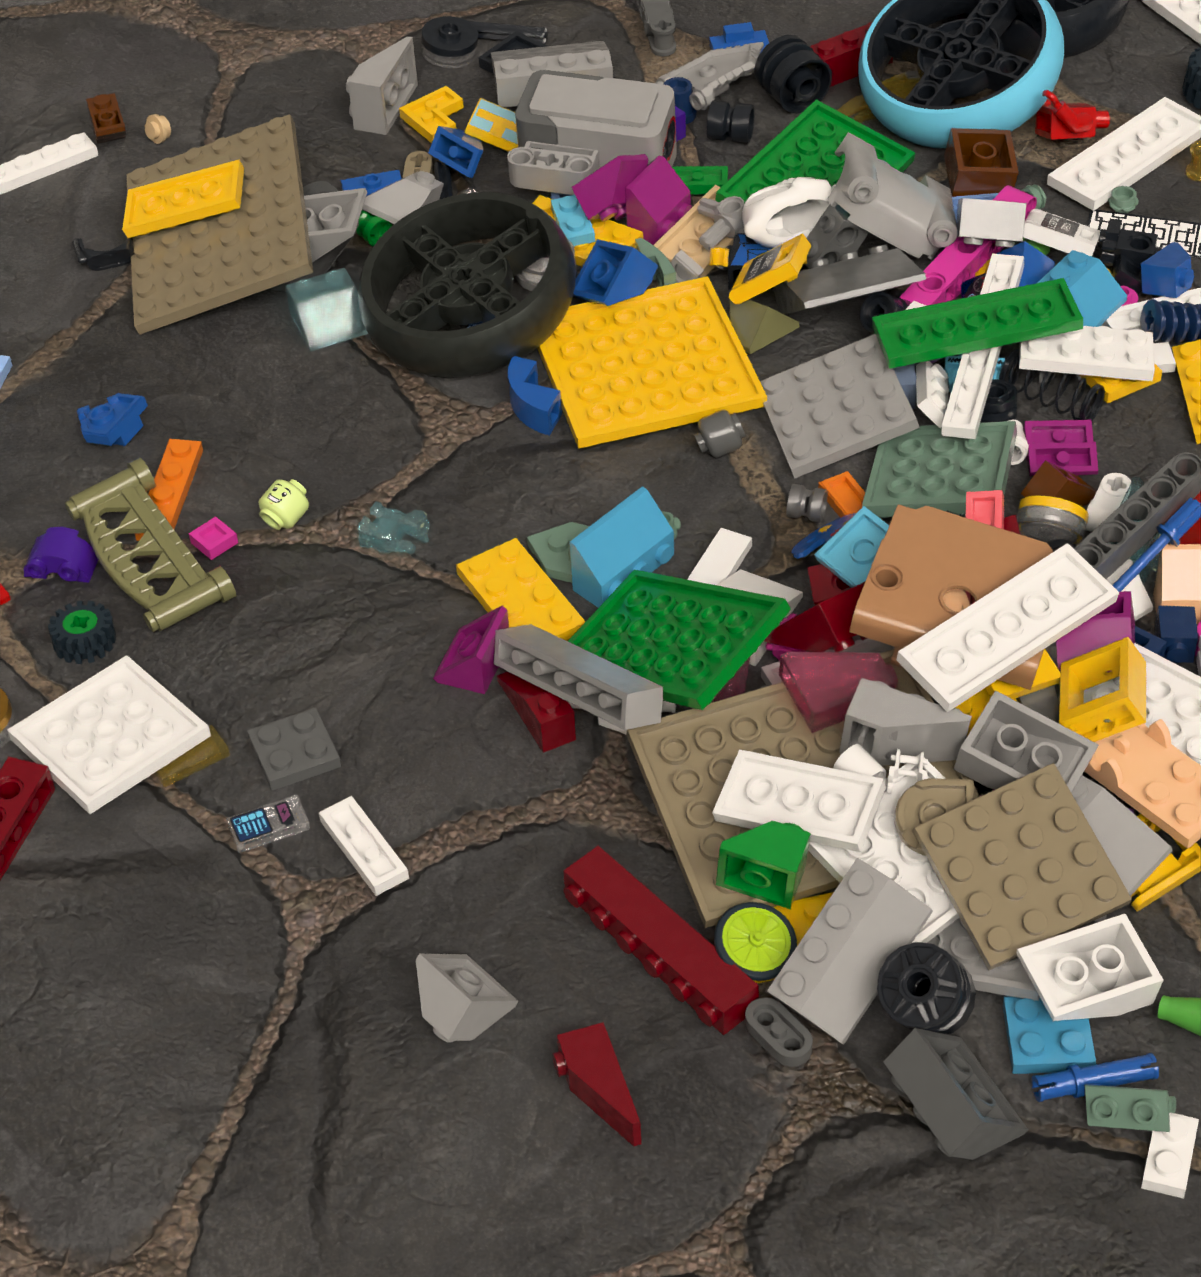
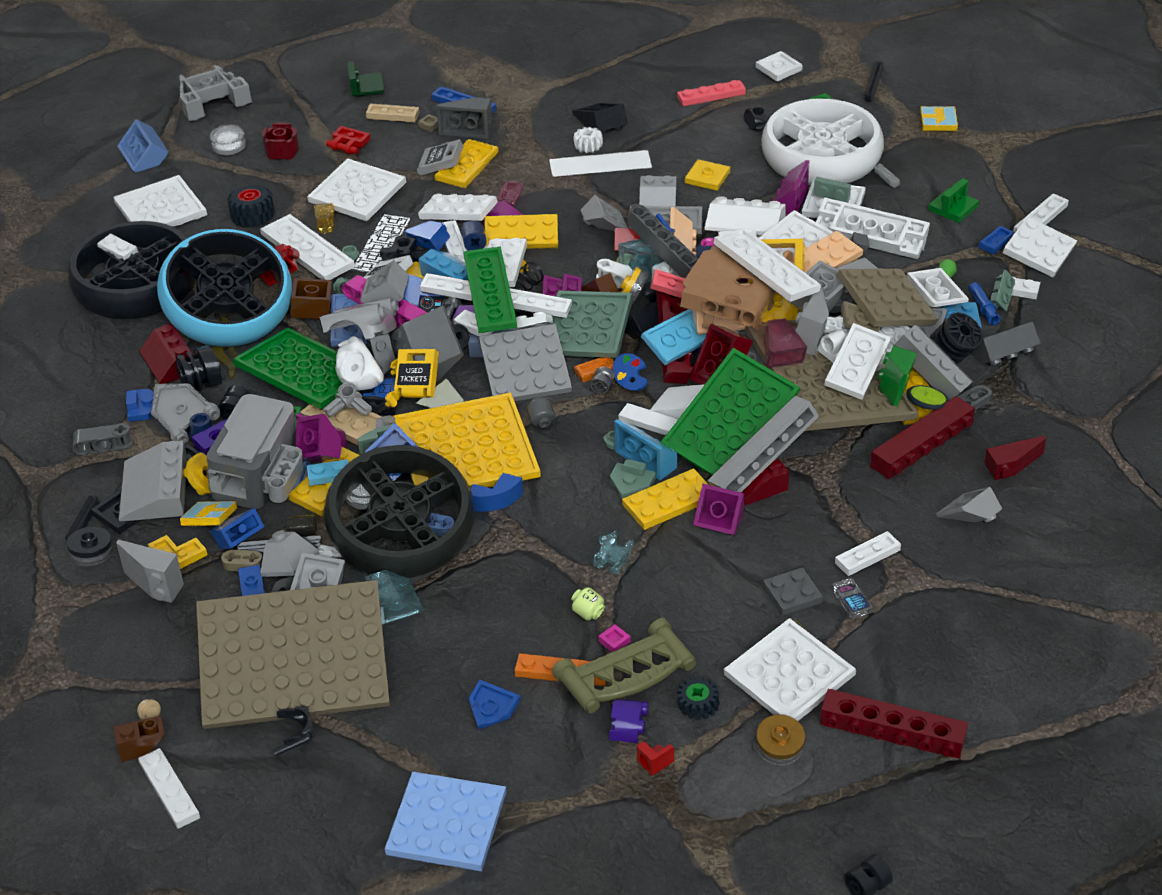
camera: 90 degrees left, 5 degrees down
(183, 199) = (275, 663): yellow plate -> none

